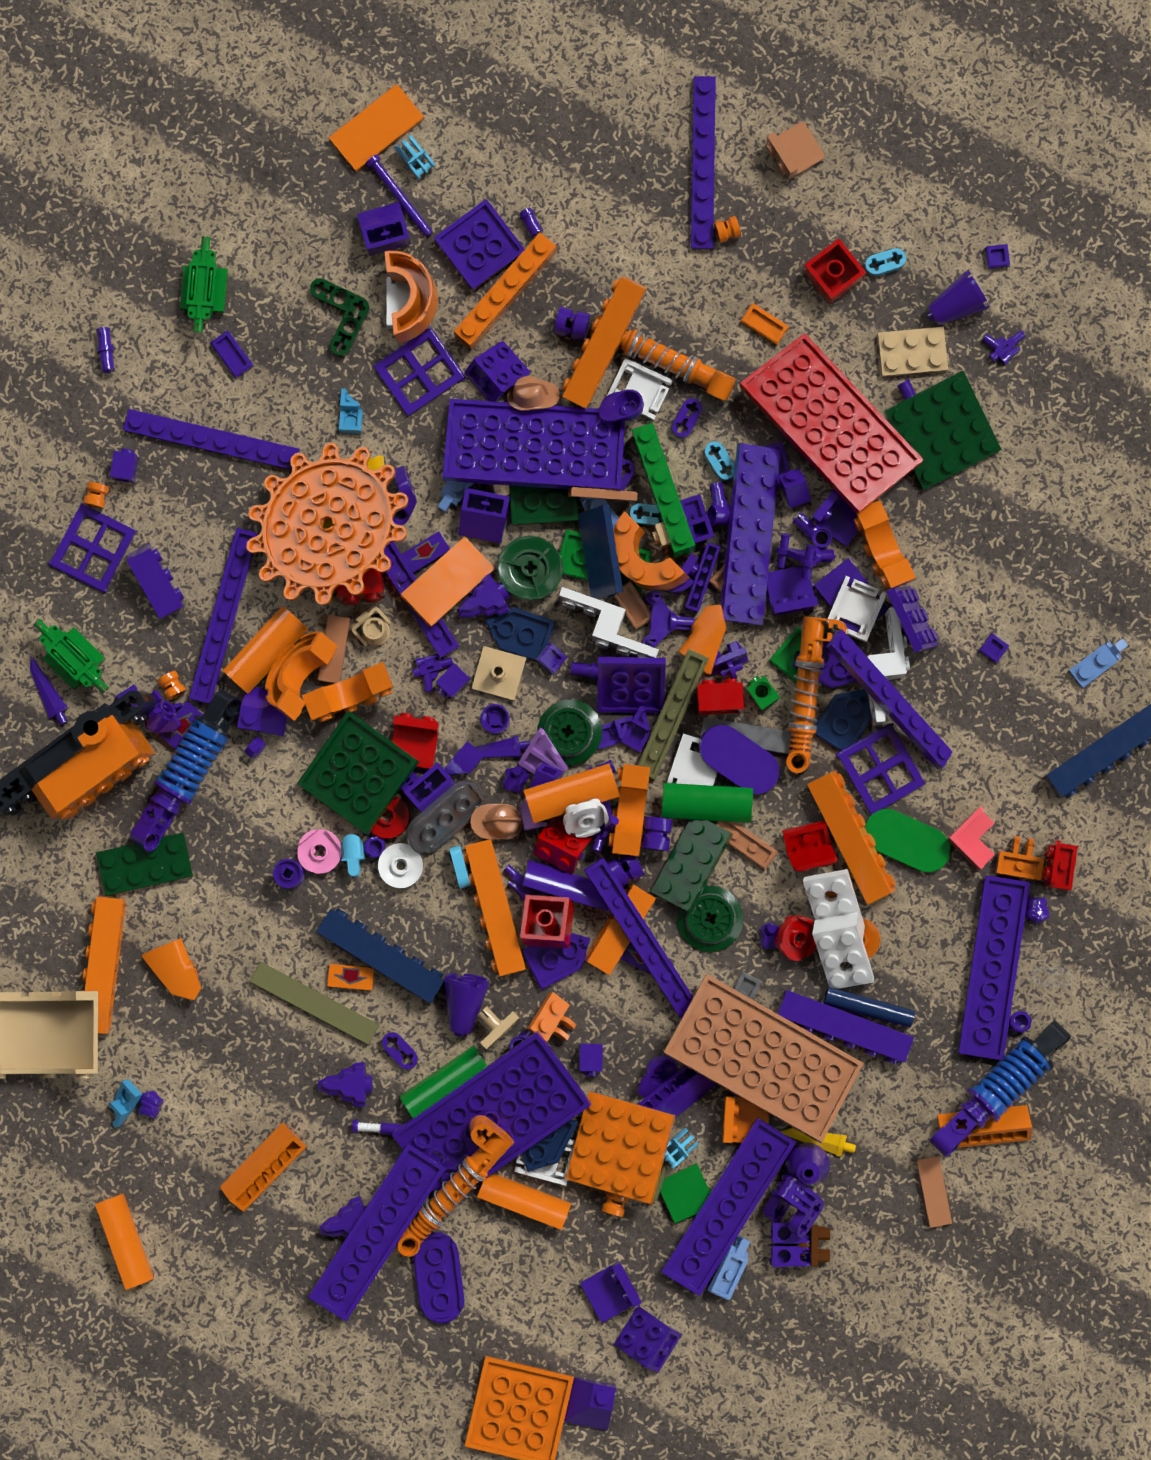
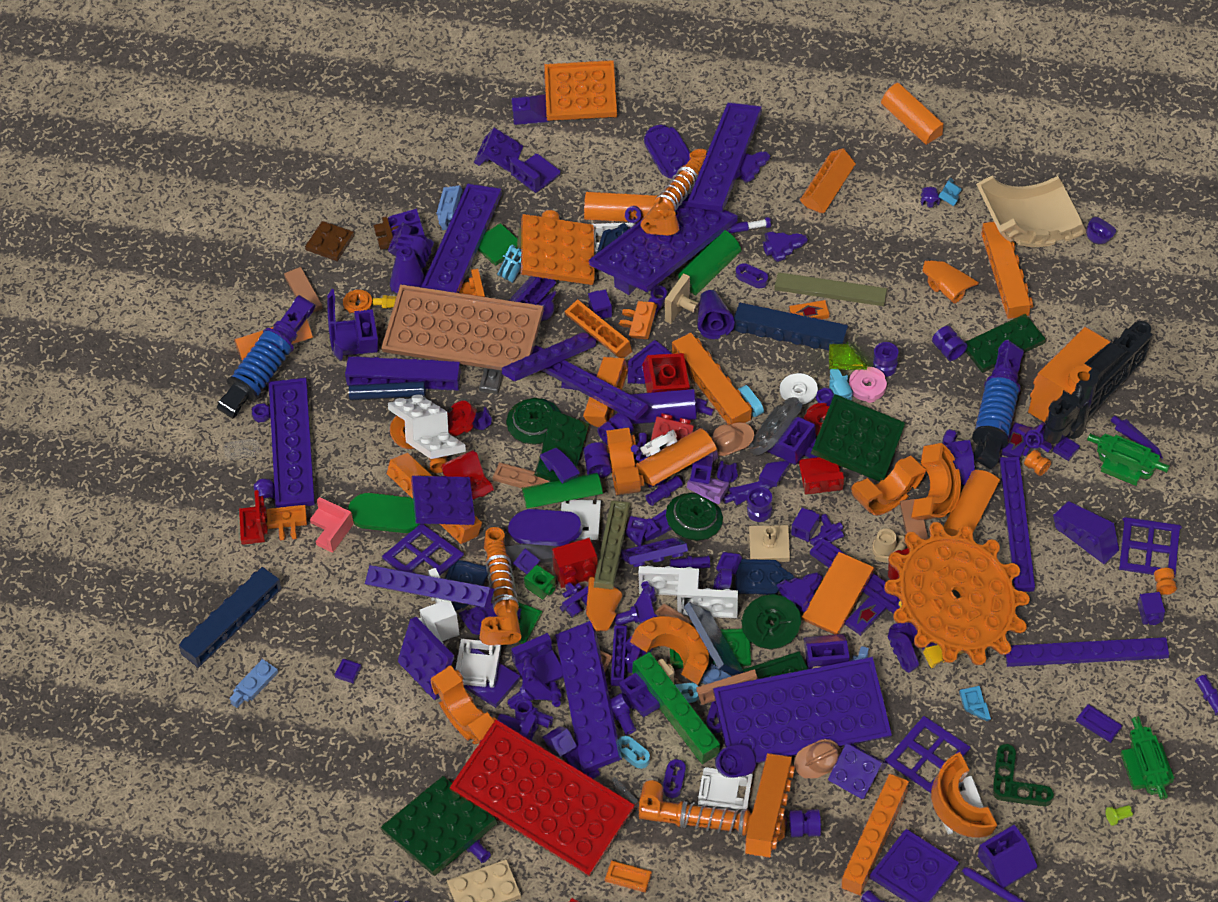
camera: 165 degrees right, 30 degrees down
(205, 868) = (949, 343): none -> dark purple wheel
(254, 246) = (1114, 815): none -> lime piece
(333, 883) = (845, 357): none -> clear neon green slope
(513, 1175) = (638, 214): none -> dark purple bush
(570, 619) = (723, 579): none -> dark purple beam
(604, 1018) = (599, 329): none -> orange brick
(674, 985) = (548, 356): none -> dark purple plate
(702, 830) = (561, 464): none -> dark purple slope
(743, 402) = (623, 791): none -> clear piece
(770, 724) = (526, 561): none -> dark purple tile
(845, 817) = (442, 500): none -> dark purple plate
(878, 1163) = (352, 297): none -> orange gear
(886, 1261) = (329, 241): none -> reddish brown plate
(894, 1098) = (351, 336): none -> dark purple piece

